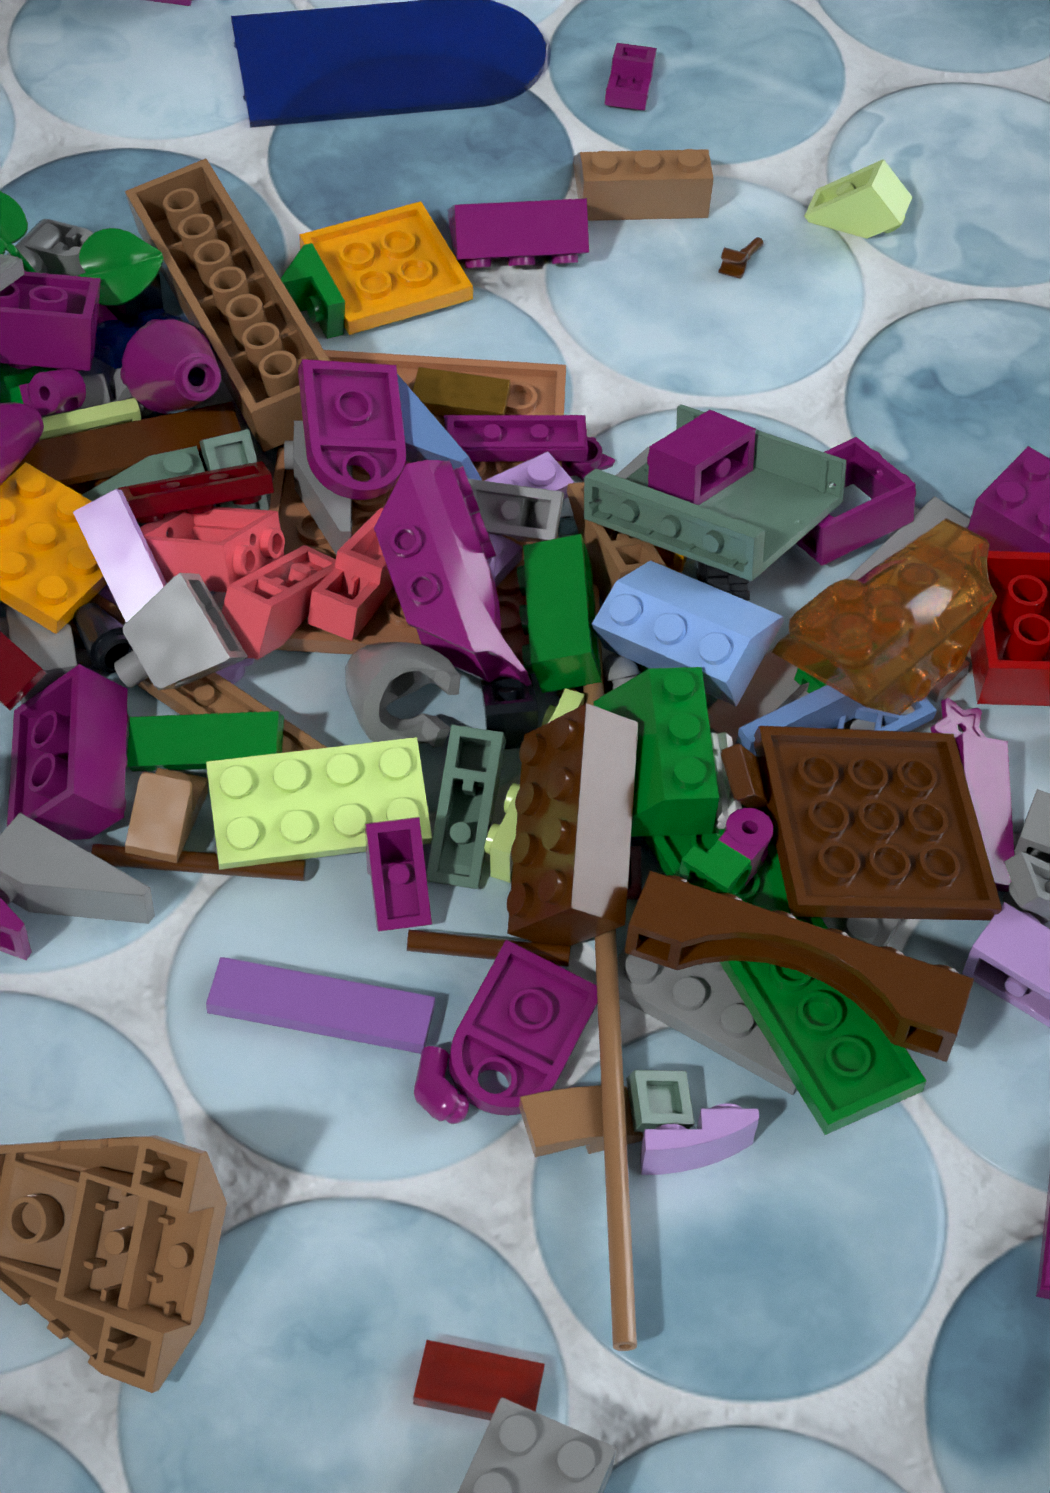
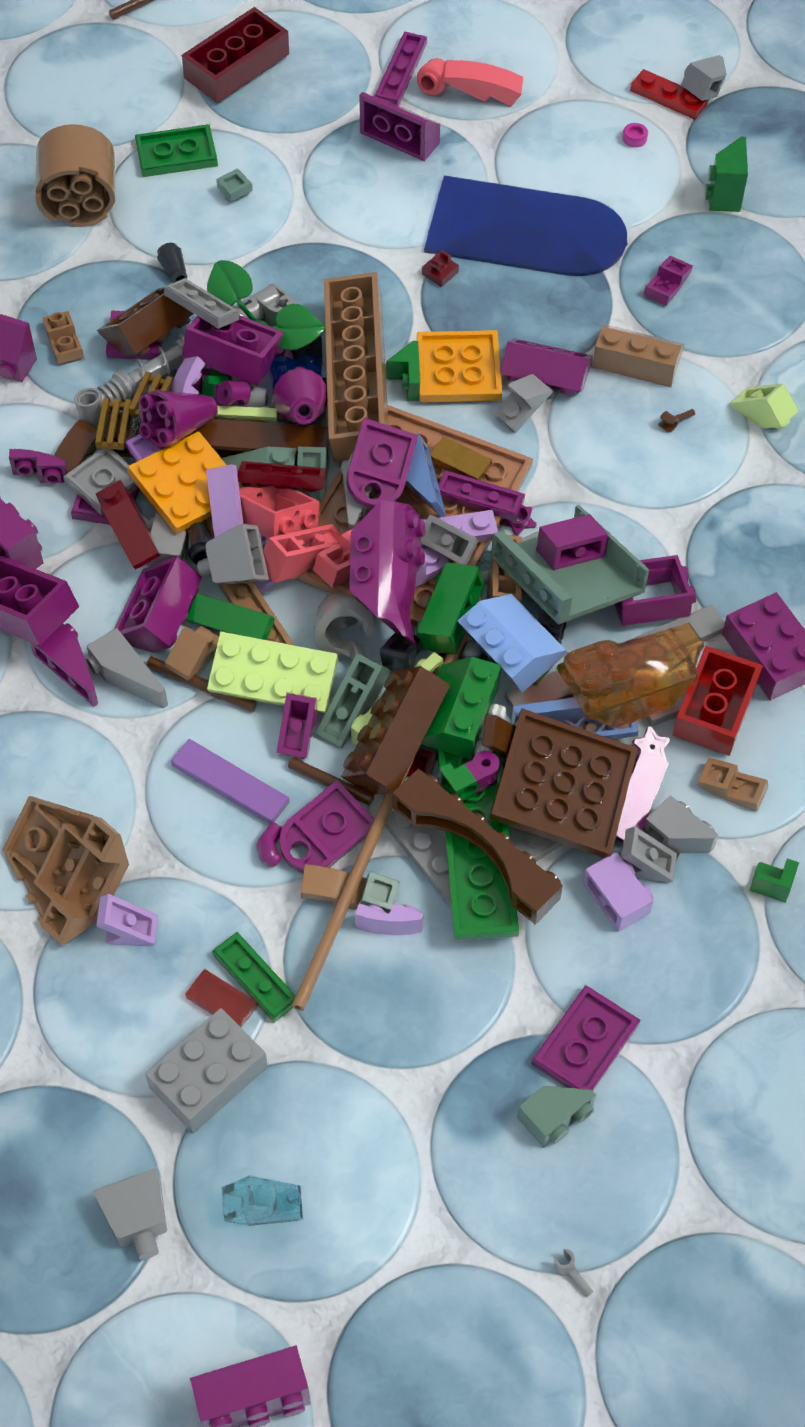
camera: 25 degrees right, 5 degrees up
(254, 1310) = (126, 922): none -> lavender slope
(288, 141) = (440, 268): none -> dark red tile
(512, 287) = (524, 400): none -> light grey slope
(518, 1321) = (255, 976): none -> green tile

